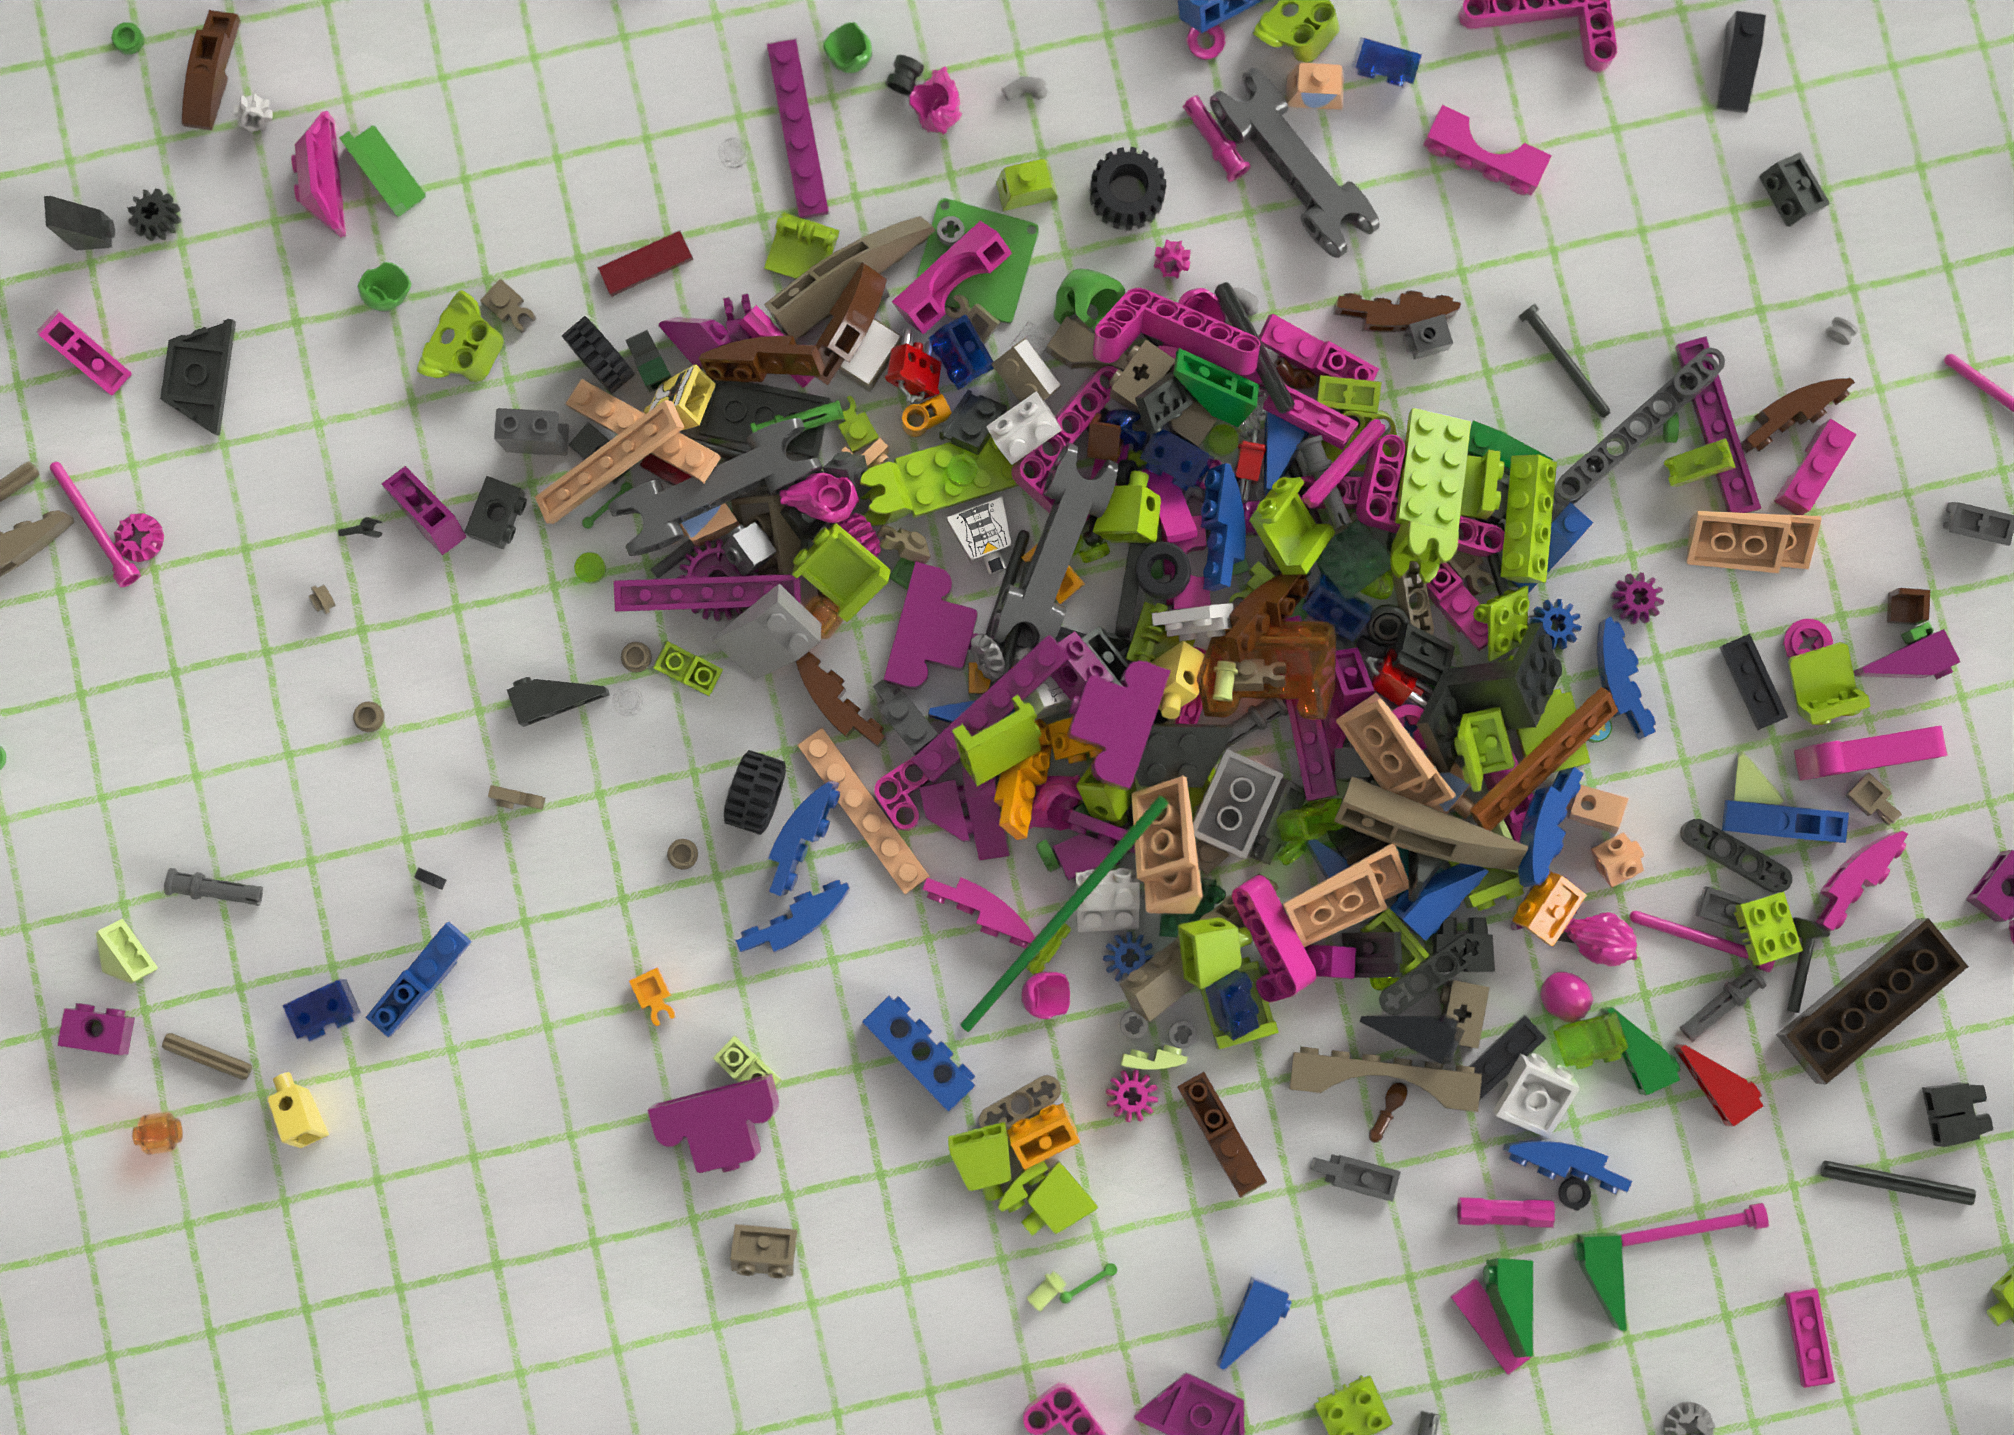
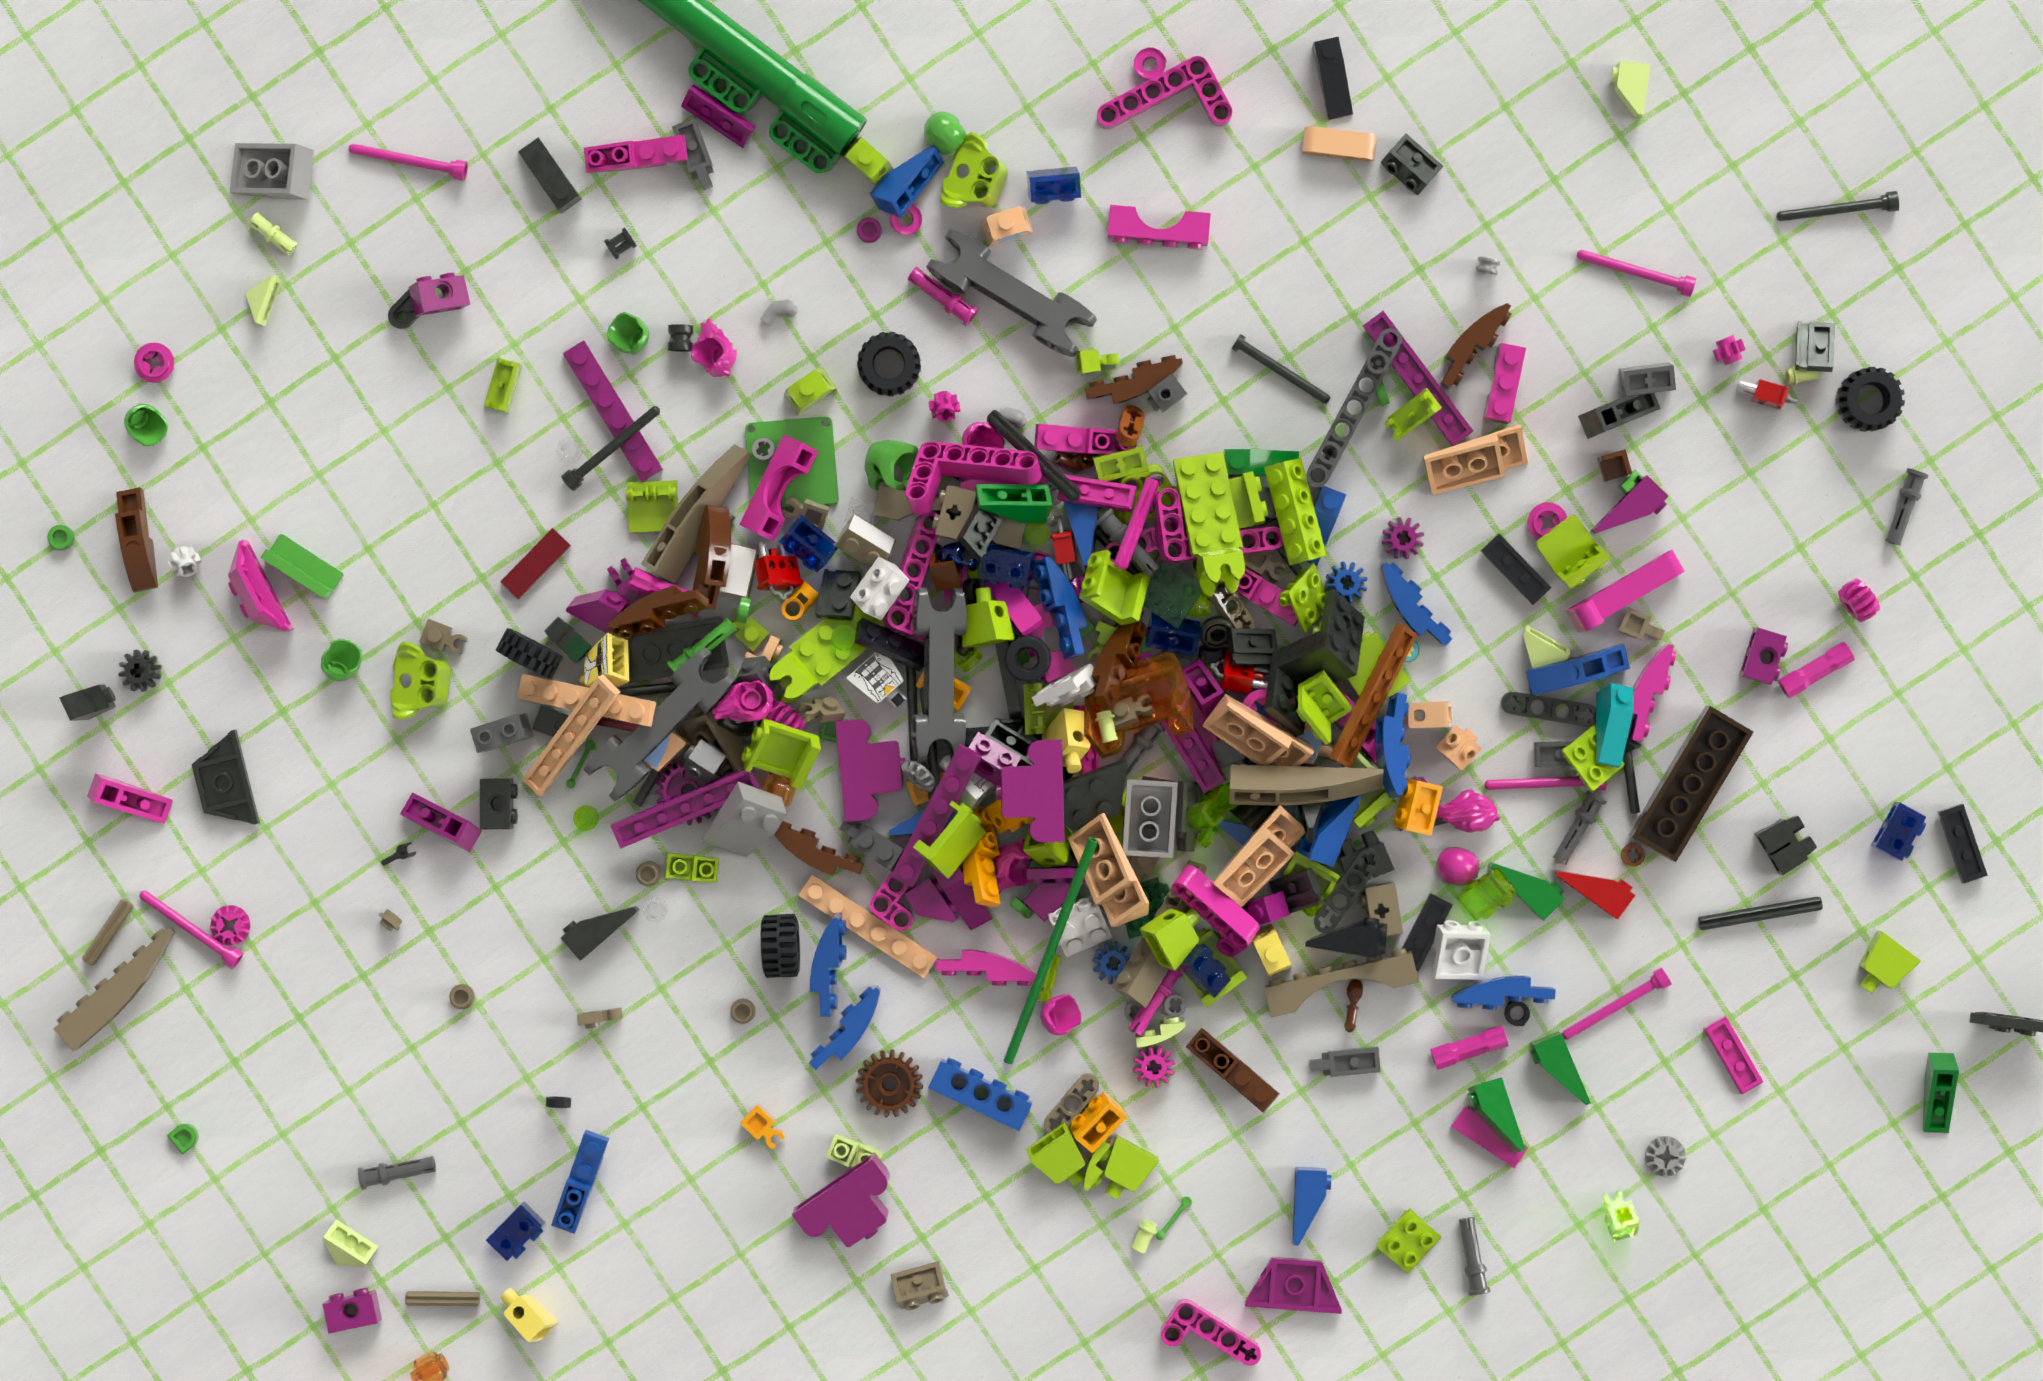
camera: 20 degrees left, 5 degrees up
(687, 54) = (503, 385): none -> lime hinge
(727, 183) = (574, 477): none -> pearl dark grey piece
(799, 1000) = (885, 1098): none -> reddish brown gear
(859, 398) = (743, 610): none -> bright green tile
(1010, 498) = (890, 644): none -> black plate
(1147, 1029) = (1145, 1014): none -> dark pink pin
(1160, 38) = (869, 230): none -> magenta tile
(1317, 1014) = (1271, 951): none -> light yellow torso
(1353, 271) = (1090, 361): none -> lime piece
(1374, 357) = (1134, 427): none -> dark orange beam
(1721, 136) = (1339, 143): none -> light nougat beam
(1782, 1056) = (1639, 849): none -> dark orange bush
(1808, 894) = (1613, 723): none -> teal slope
(1931, 548) = (1617, 413): none -> pearl dark grey slope

